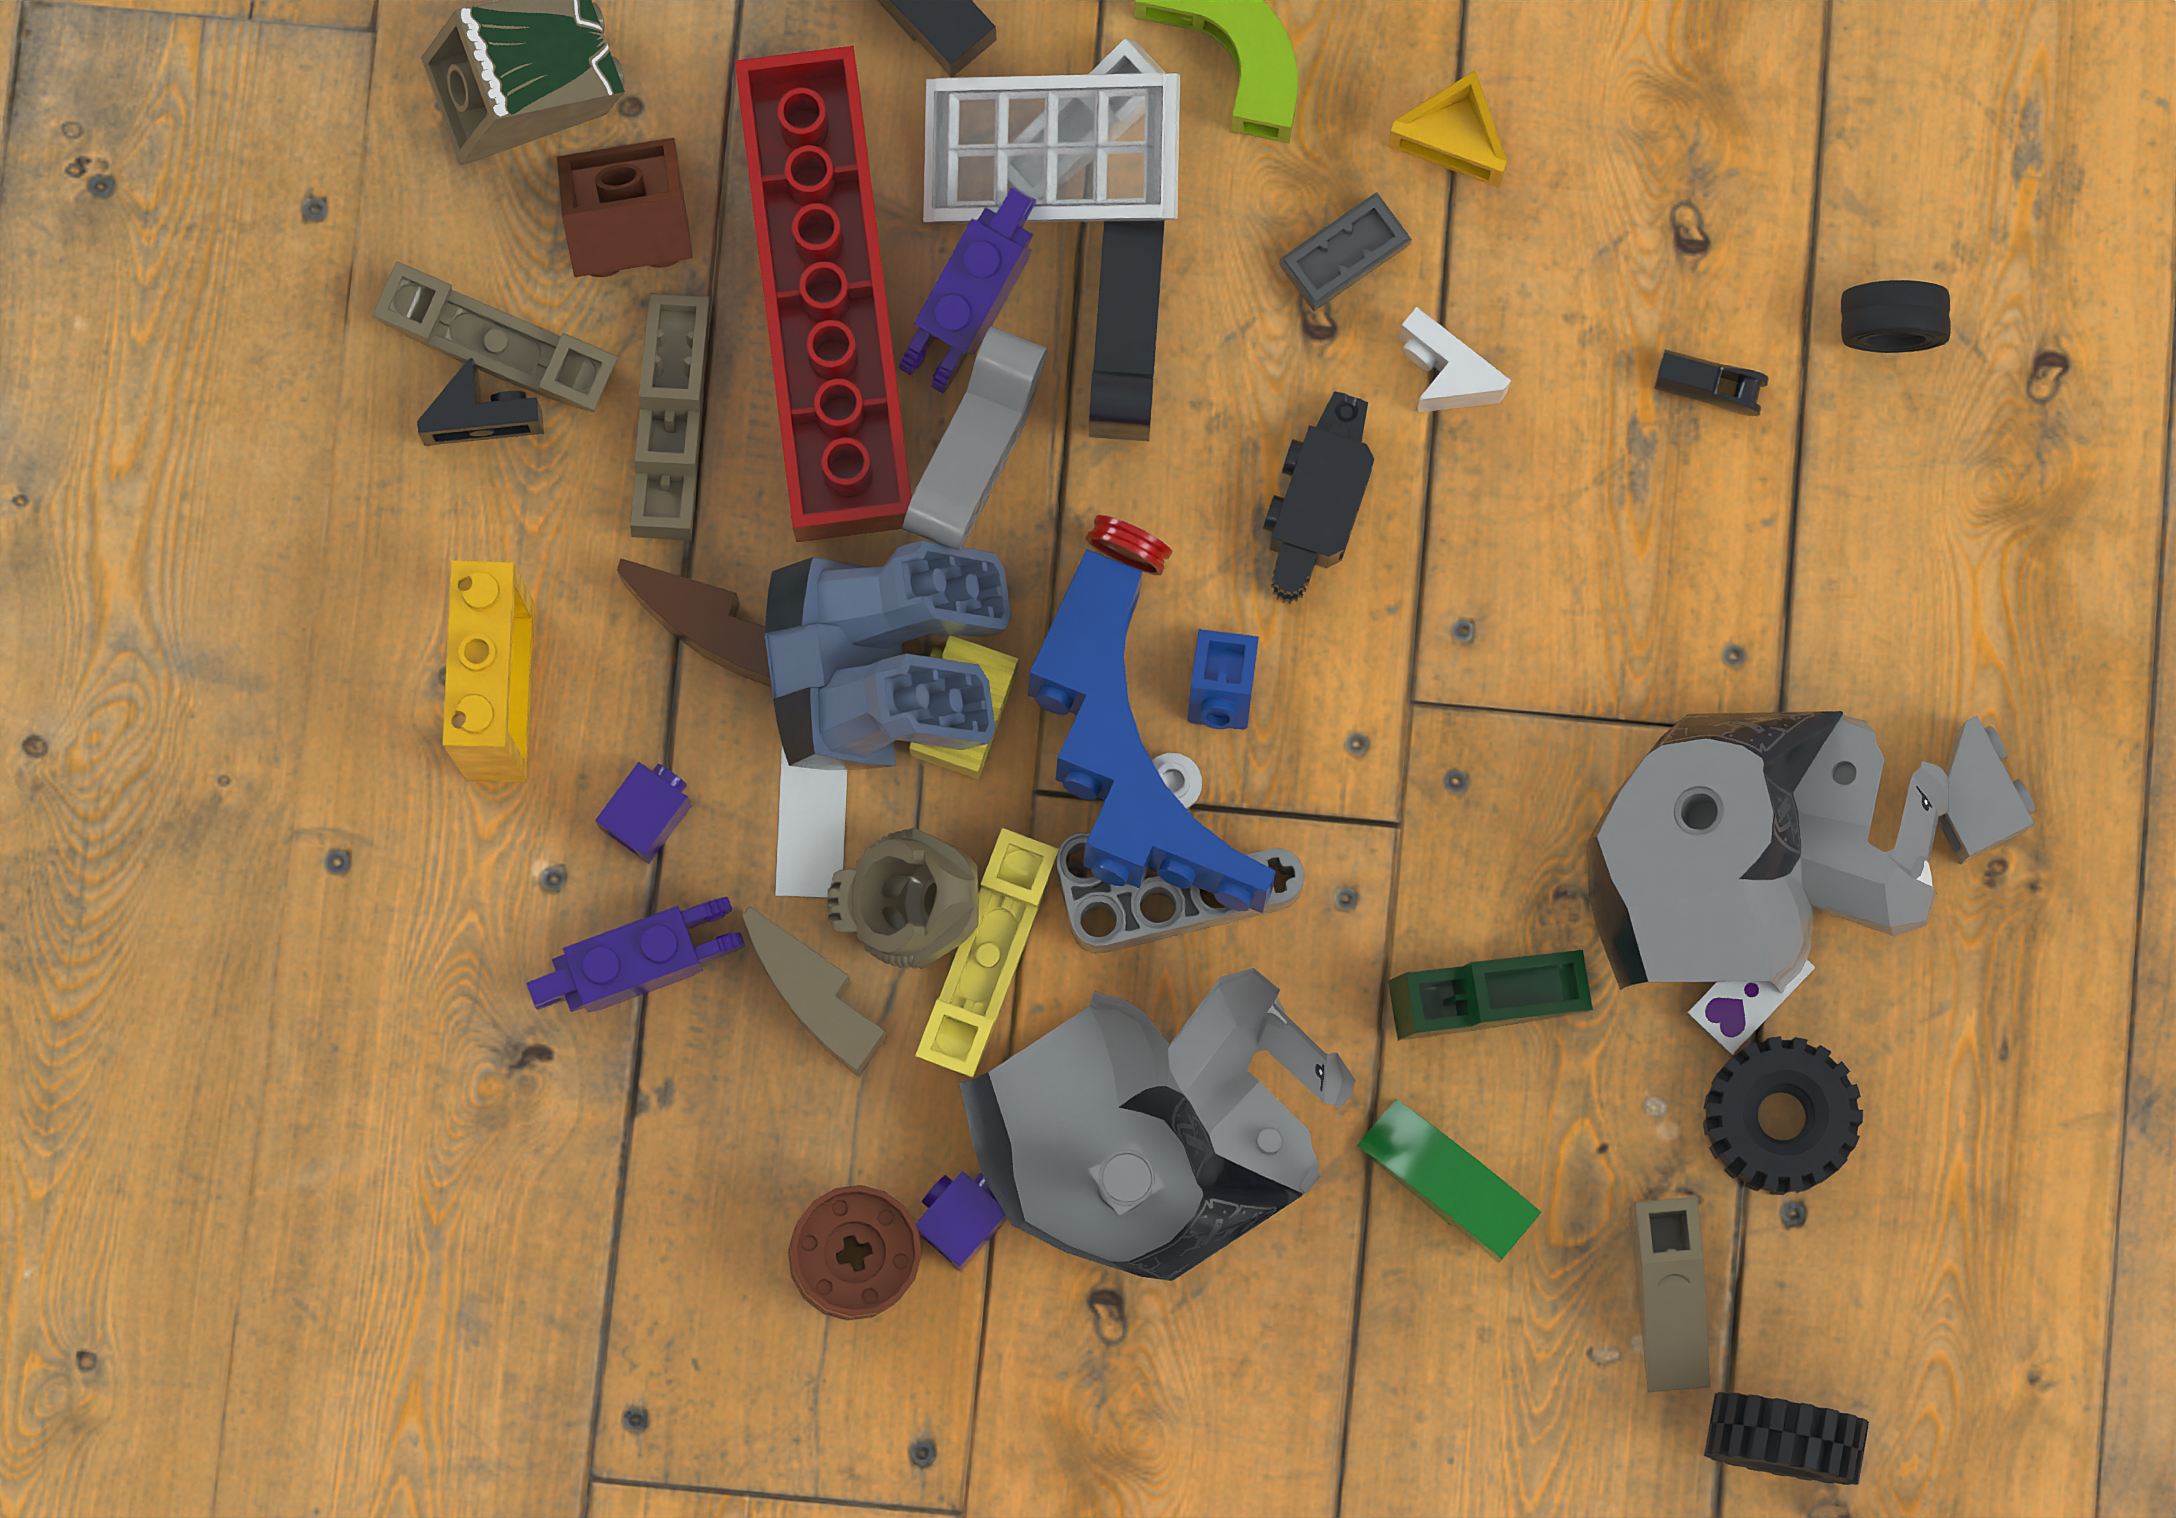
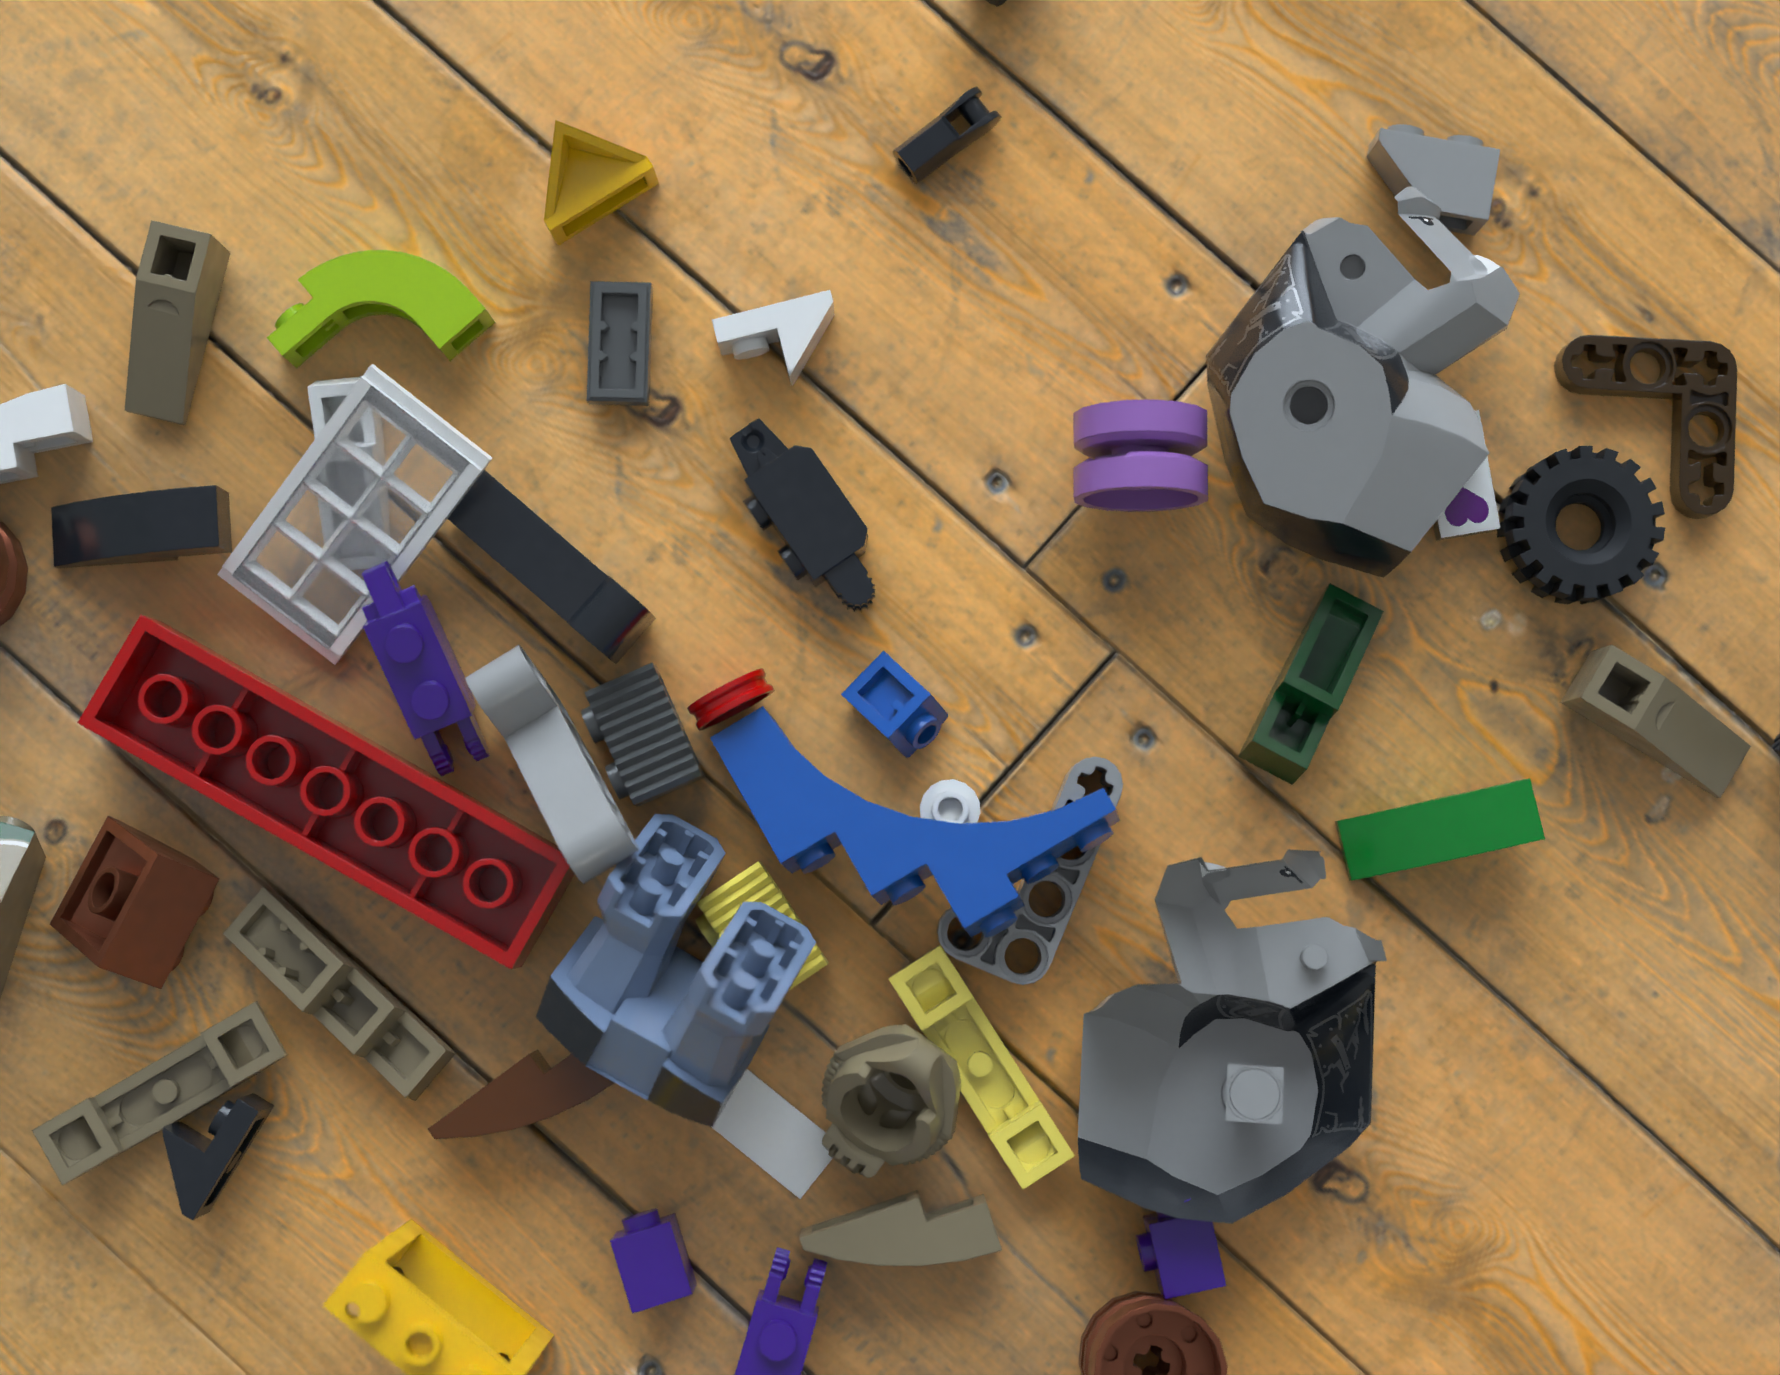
camera: 55 degrees left, 5 degrees up
(1048, 499) = (642, 736): none -> dark grey brick
(1564, 719) = (1140, 455): none -> medium lavender wheel
(1958, 1135) = (1689, 399): none -> dark brown beam

